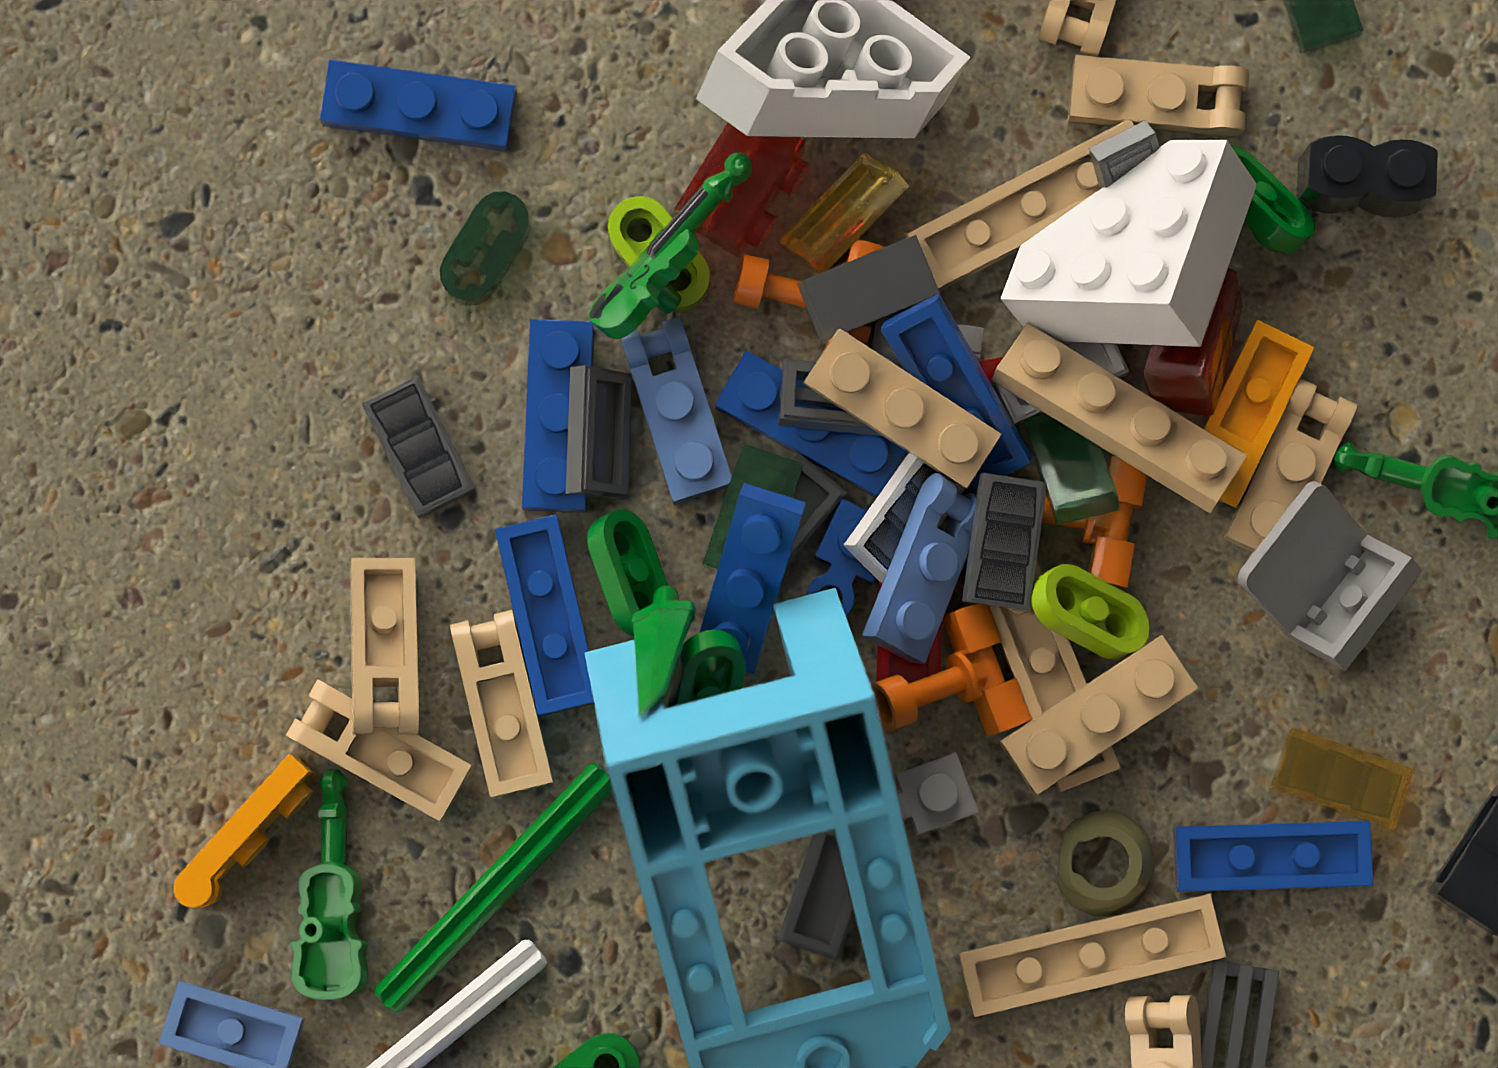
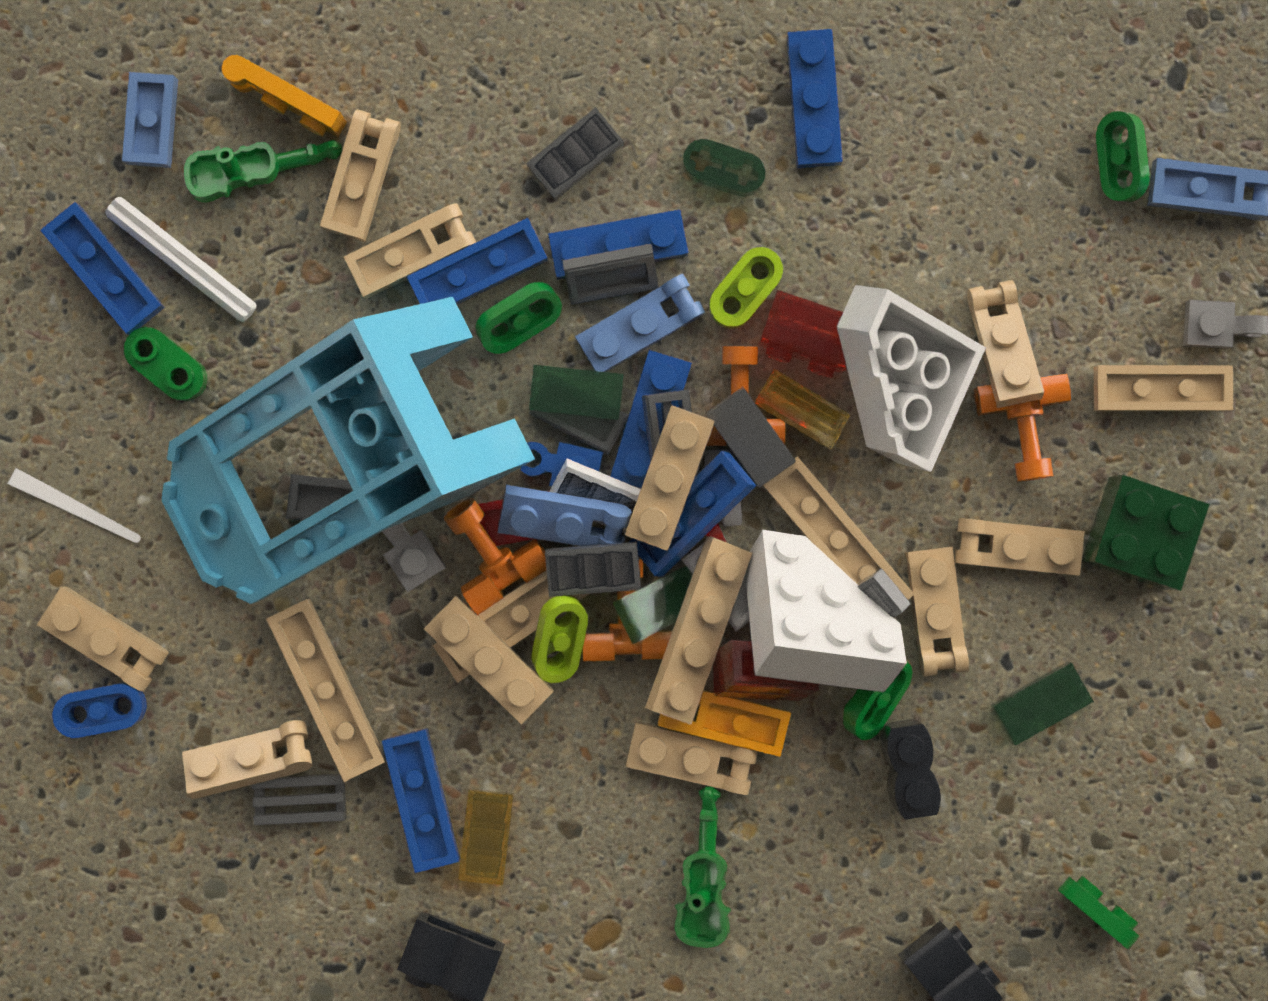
camera: 70 degrees right, 5 degrees up
(384, 643) = (432, 159): tan plate -> none
(494, 888) = (274, 268): green axle -> none
(645, 283) = (721, 282): green piece -> none
(658, 643) = (468, 344): green bar -> none
(707, 667) = (454, 385): green plate -> none
(753, 568) = (529, 398): blue plate -> none
(1141, 864) = (413, 700): olive piece -> none
(1326, 577) = (619, 798): light grey bracket -> none

